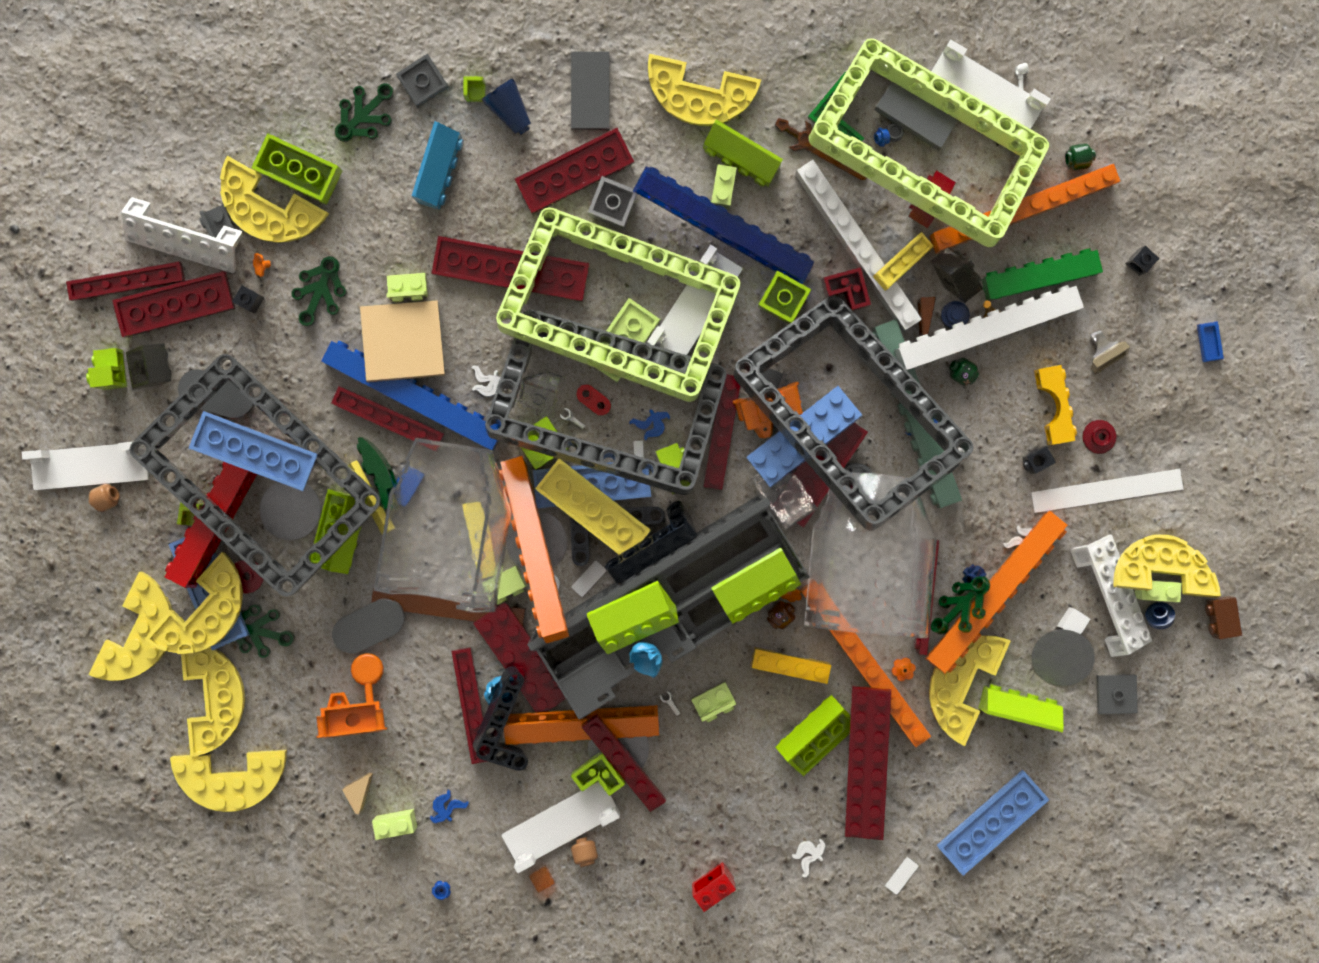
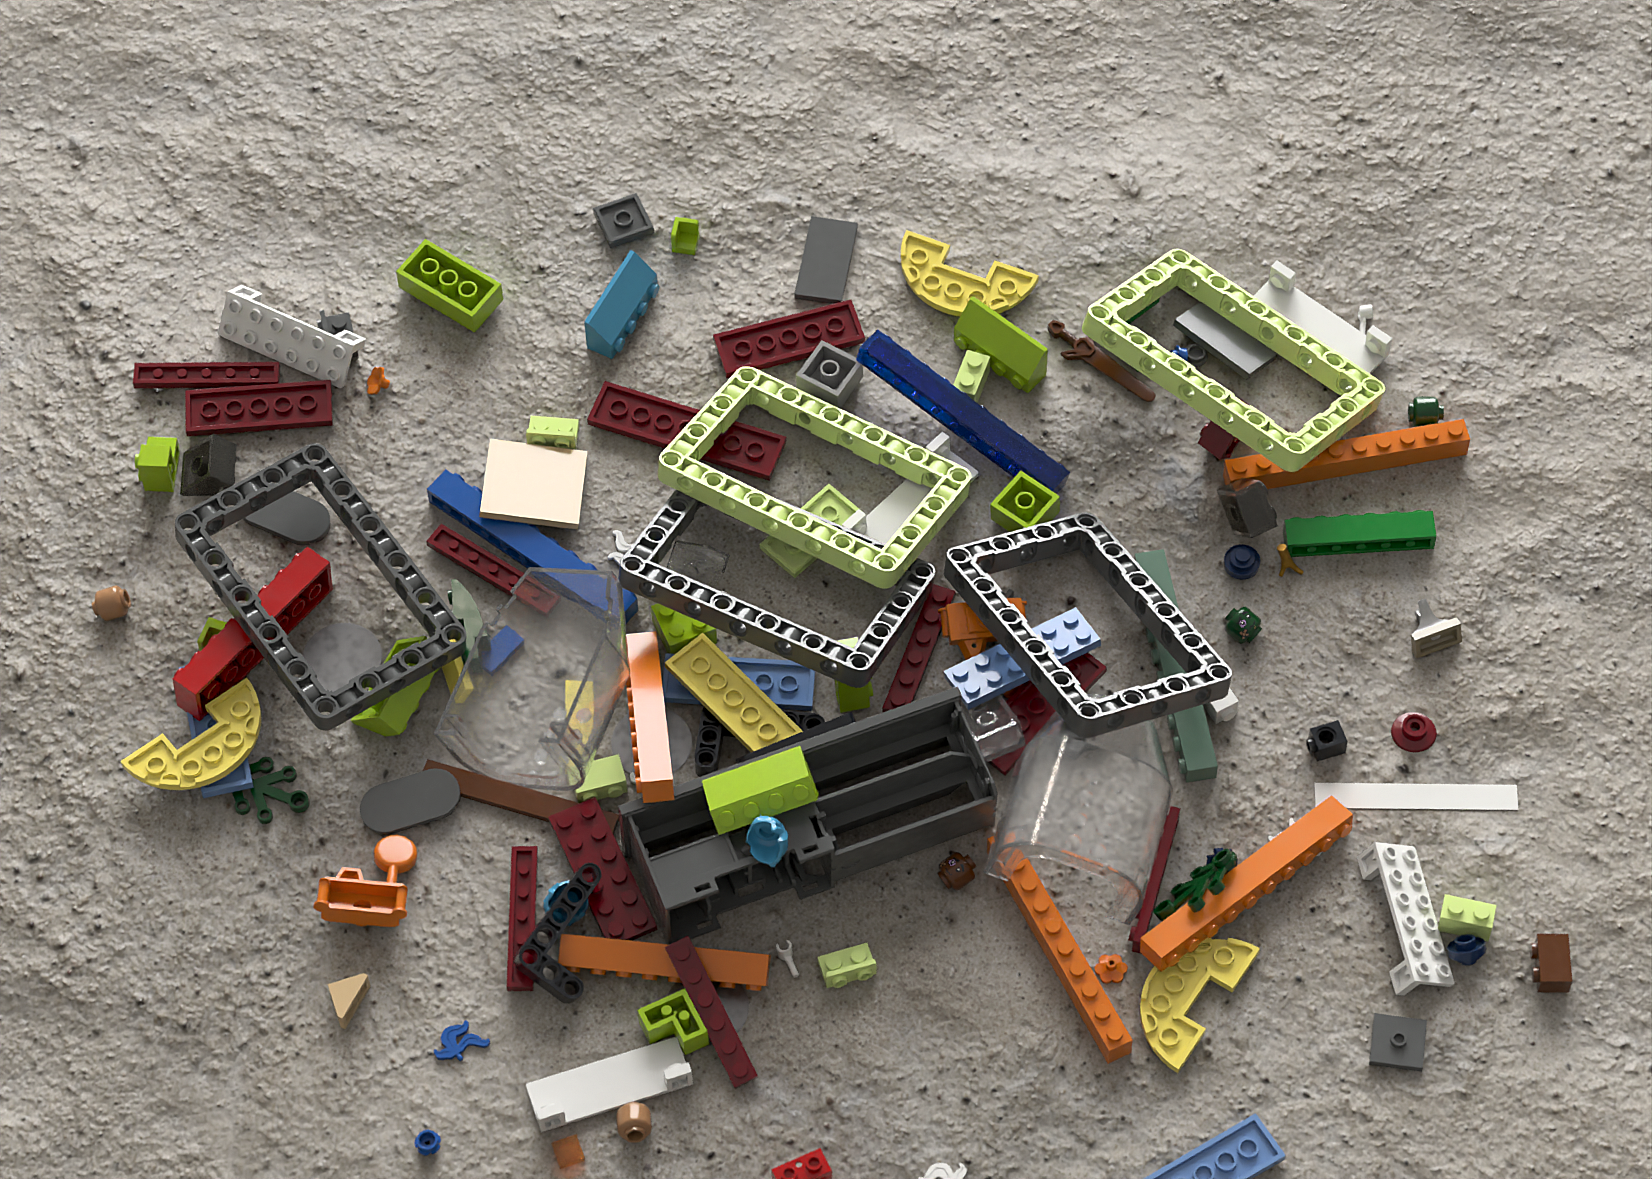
camera: 10 degrees right, 30 degrees down
(85, 466) = (102, 566): white bracket -> none
(137, 655) = (109, 784): light yellow plate -> none
(222, 696) = (197, 858): light yellow plate -> none
(229, 789) = (178, 973): light yellow plate -> none
(248, 299) = (353, 414): black brick -> none
(253, 451) = (326, 547): medium blue plate -> none
(255, 580) = (279, 714): dark red piece -> none
(259, 215) = (393, 332): light yellow plate -> none
(320, 288) = (443, 418): dark green plant -> none
(361, 114) = (544, 246): dark green plant -> none
(394, 824) = (386, 1044): yellowish green brick -> none
(508, 106) = (722, 256): dark blue cone -> none
(594, 398) = (759, 589): red plate -> none
(656, 419) = (835, 623): blue piece -> none
(756, 586) = (926, 789): lime slope -> none
(791, 666) = (983, 939): yellow arch -> none
(792, 596) = (973, 846): orange plant -> none
(815, 736) = (979, 1026): lime slope -> none
(848, 283) = (1109, 504): dark red brick -> none
(855, 243) = (1129, 467): white brick -> none
(868, 762) = (1041, 1065): dark red plate -> none
(903, 261) = (1182, 487): light yellow tile -> none
(925, 311) = (1204, 551): reddish brown slope -> none
(989, 328) = (1282, 576): white brick -> none
(1022, 708) = (1261, 1033): slope -> none
(1052, 381) = (1355, 654): yellow arch -> none
(1063, 657) = (1328, 980): flat silver sticker -> none
(1073, 621) = (1347, 941): white brick -> none
(1142, 260) = (1490, 535): black brick -> none
(1165, 556) = (1482, 875): light yellow plate -> none
(1210, 341) = (1571, 643): blue tile -> none

